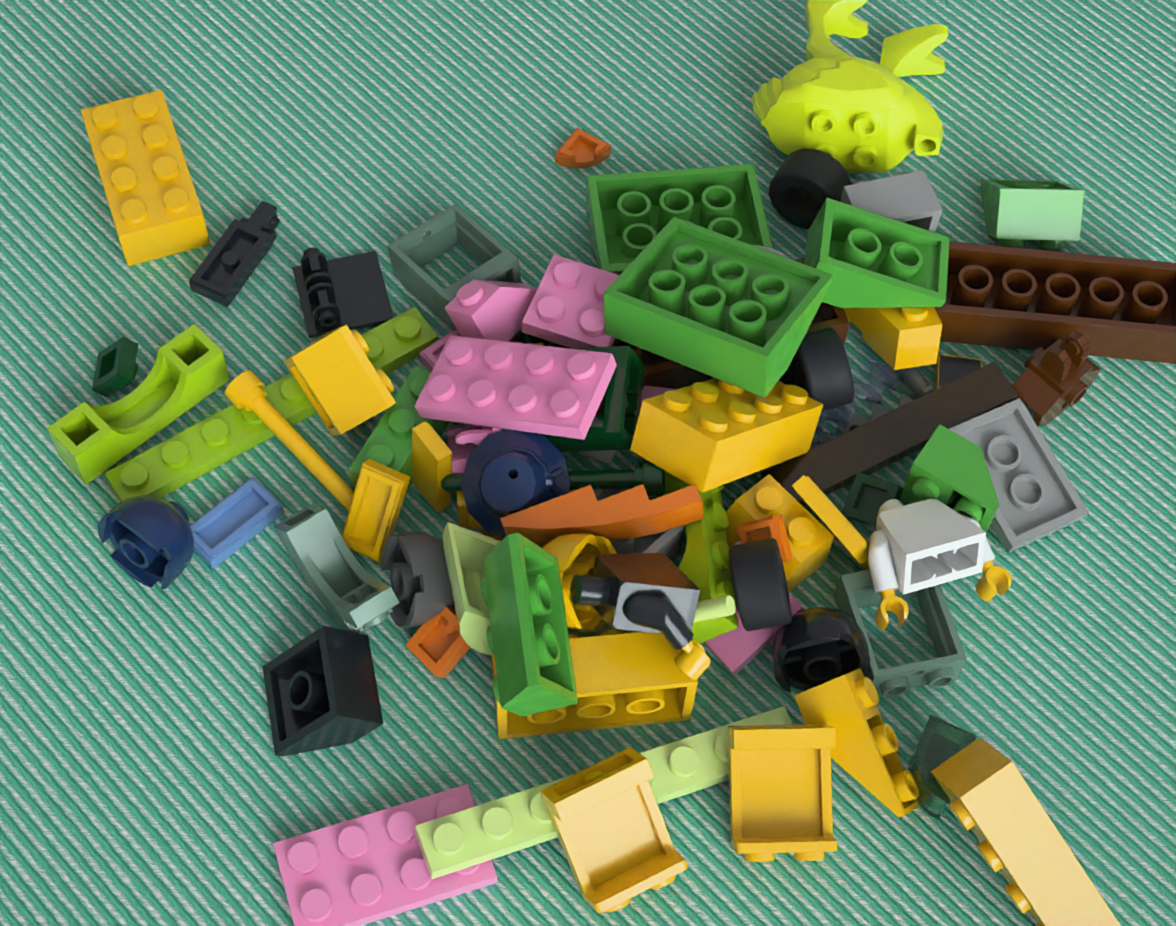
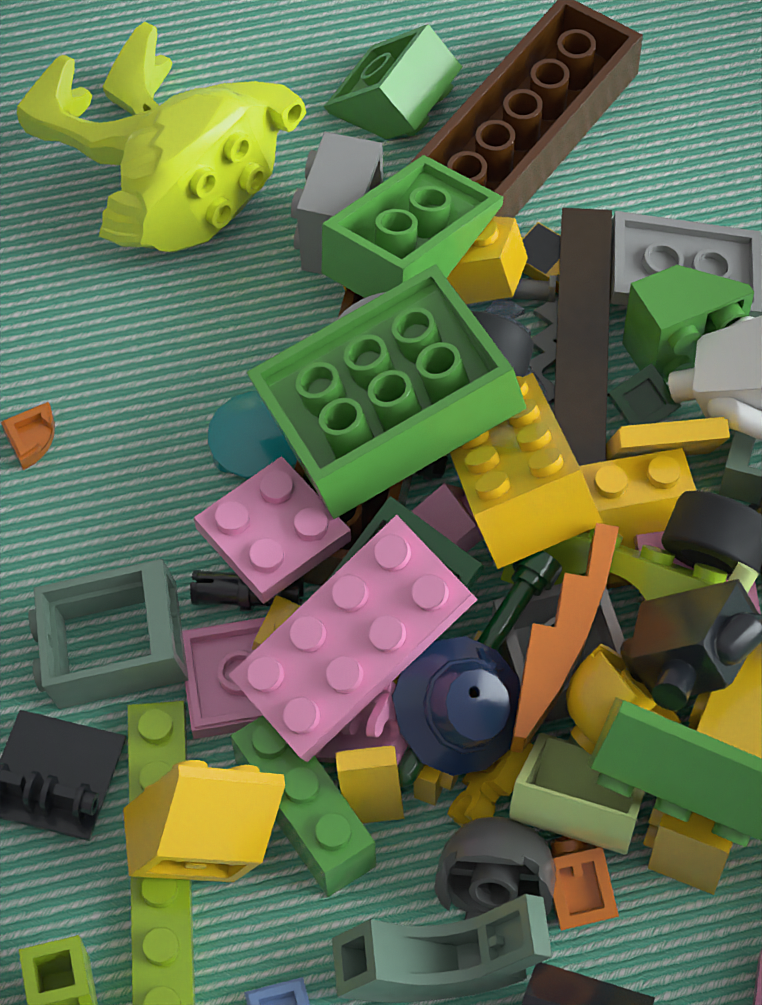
camera: 55 degrees left, 0 degrees up
(248, 393) = (148, 937): yellow piece -> none
(374, 508) = (386, 871): yellow tile -> none
(490, 309) = (211, 619): bright pink slope -> none
(633, 207) = (192, 405): bright green slope -> none
(764, 529) = (648, 508): orange tile -> none
(805, 183) = (249, 248): black tyre -> none
(1056, 377) = (607, 168): reddish brown hinge -> none

